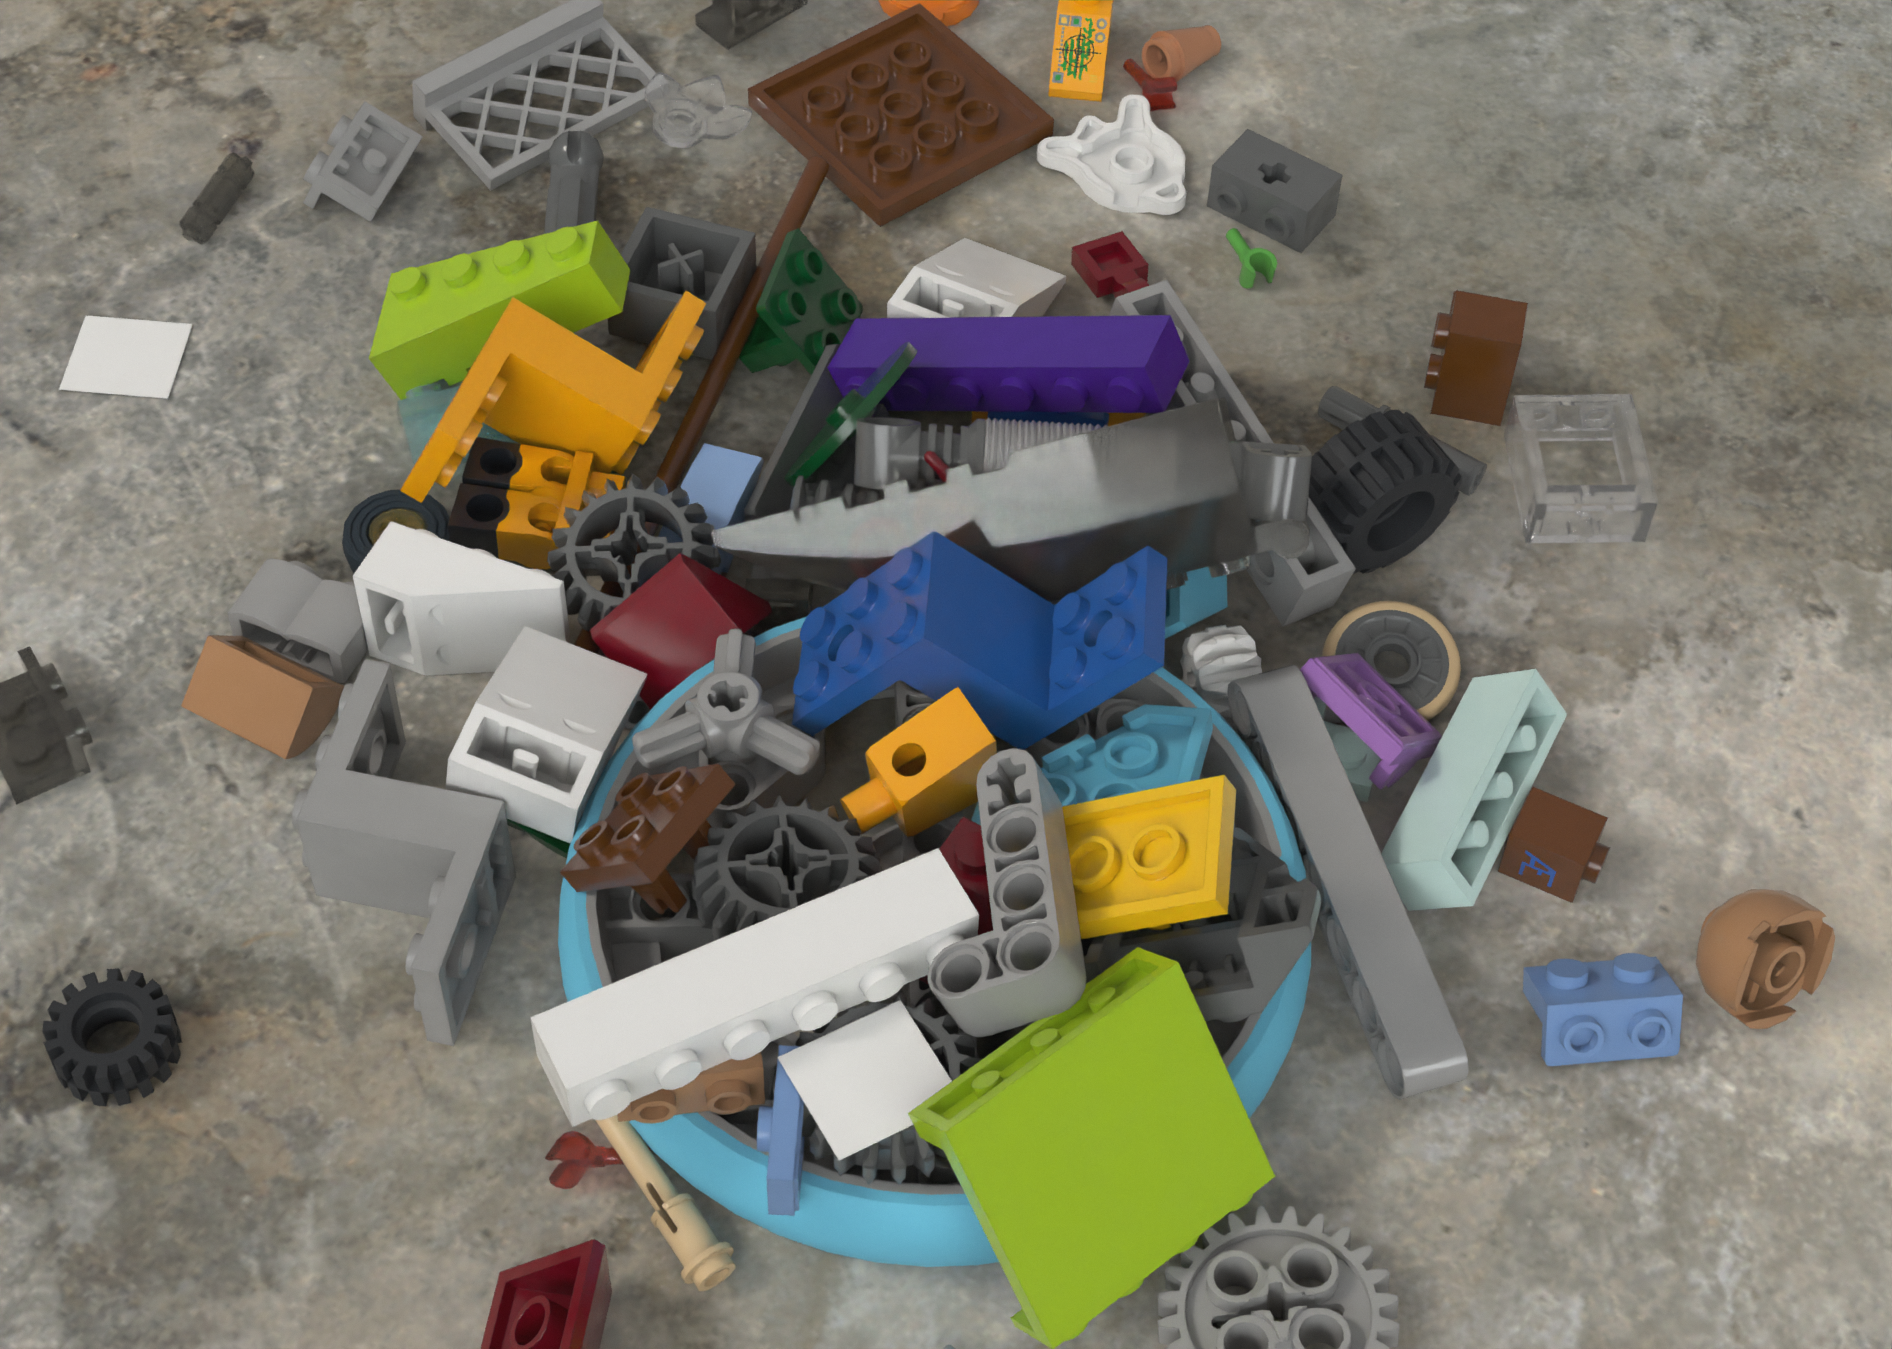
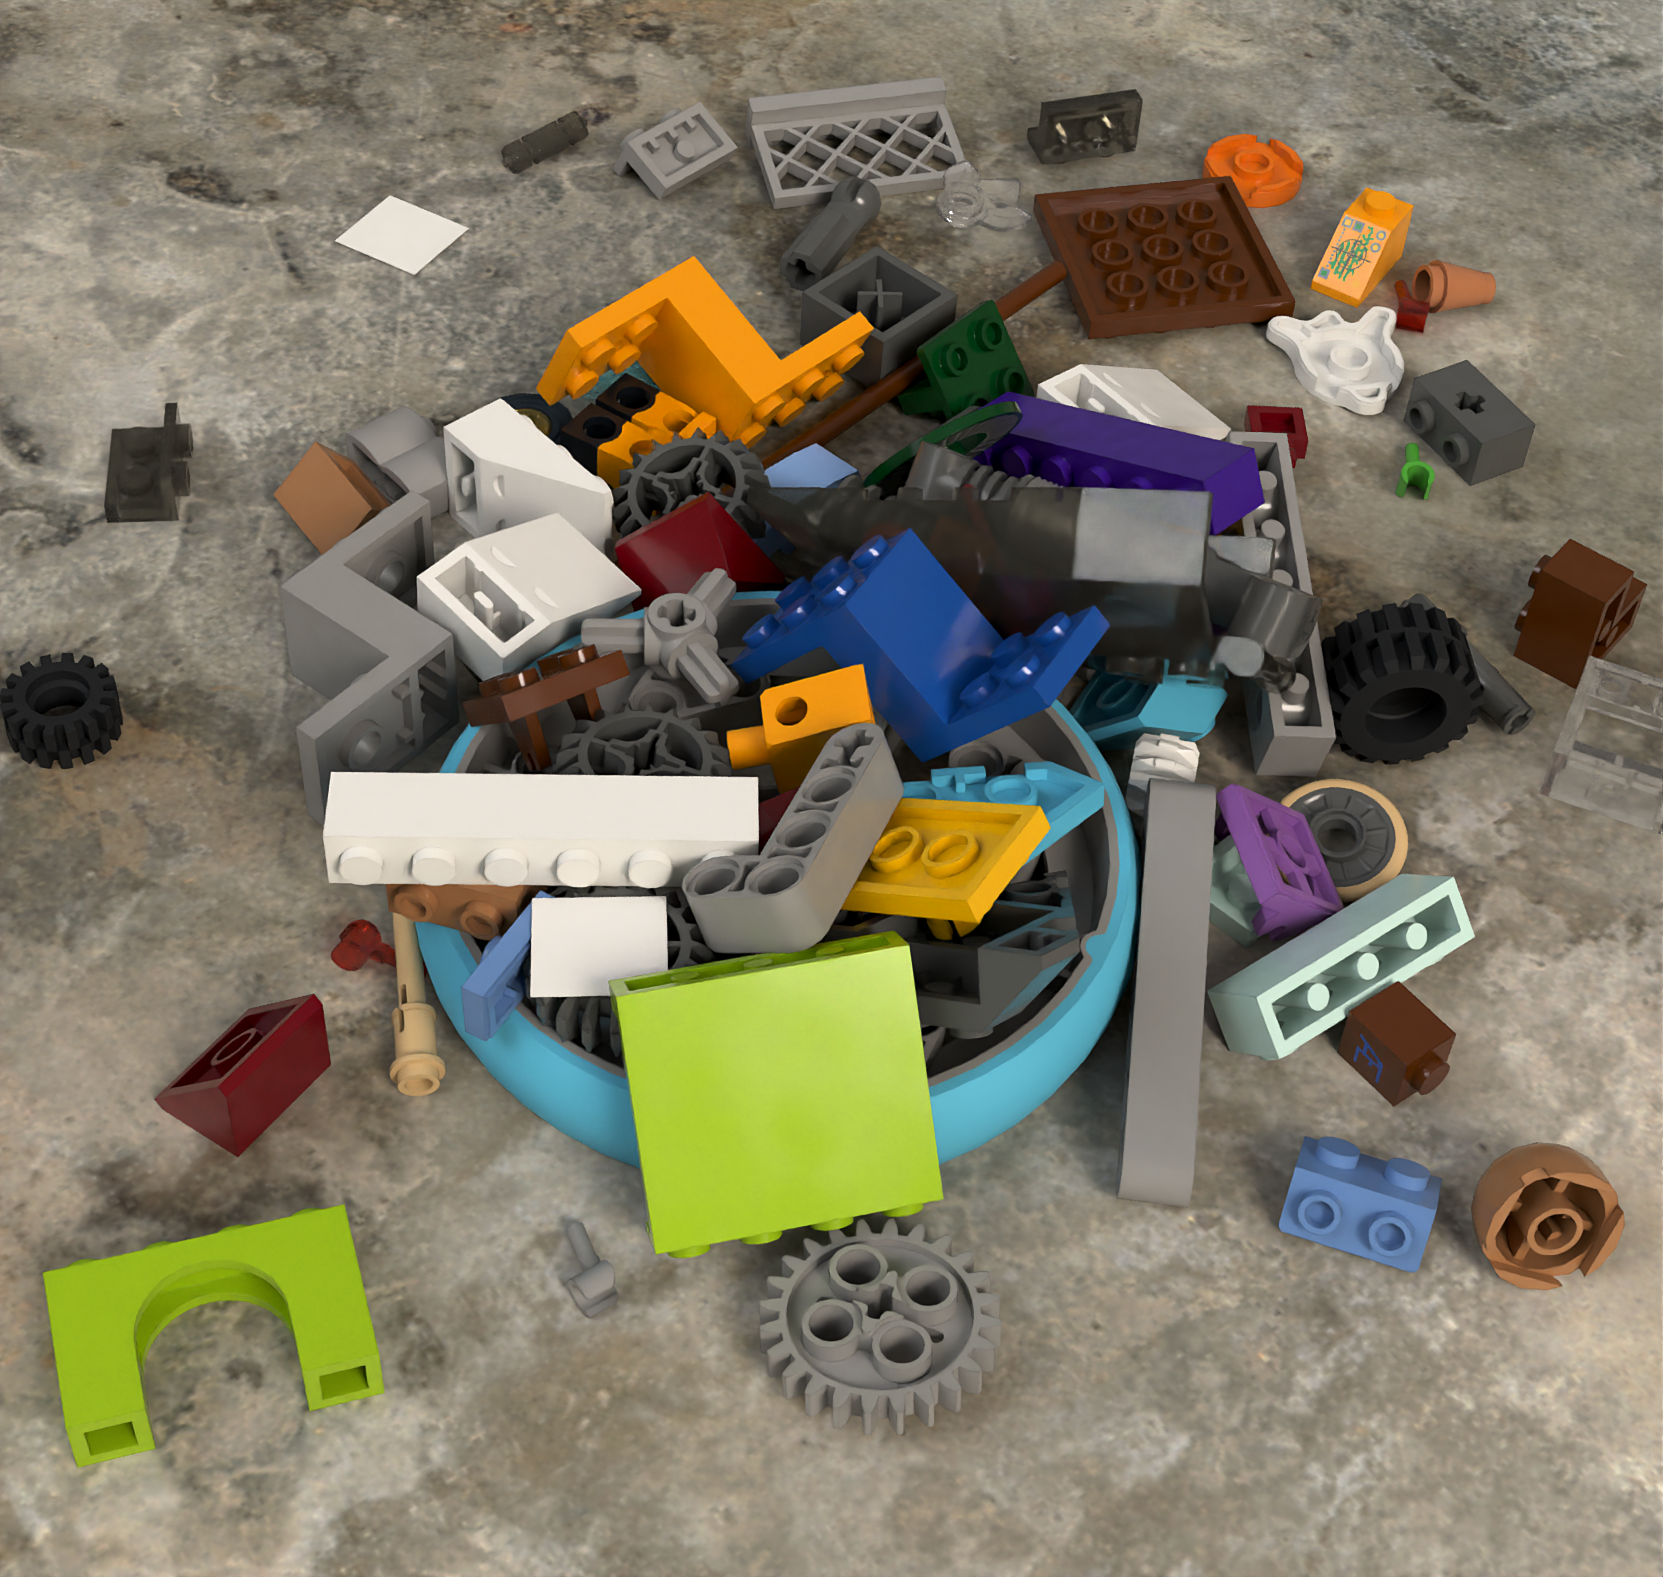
camera: 25 degrees right, 5 degrees down
(447, 309) = (761, 269): lime wedge -> none

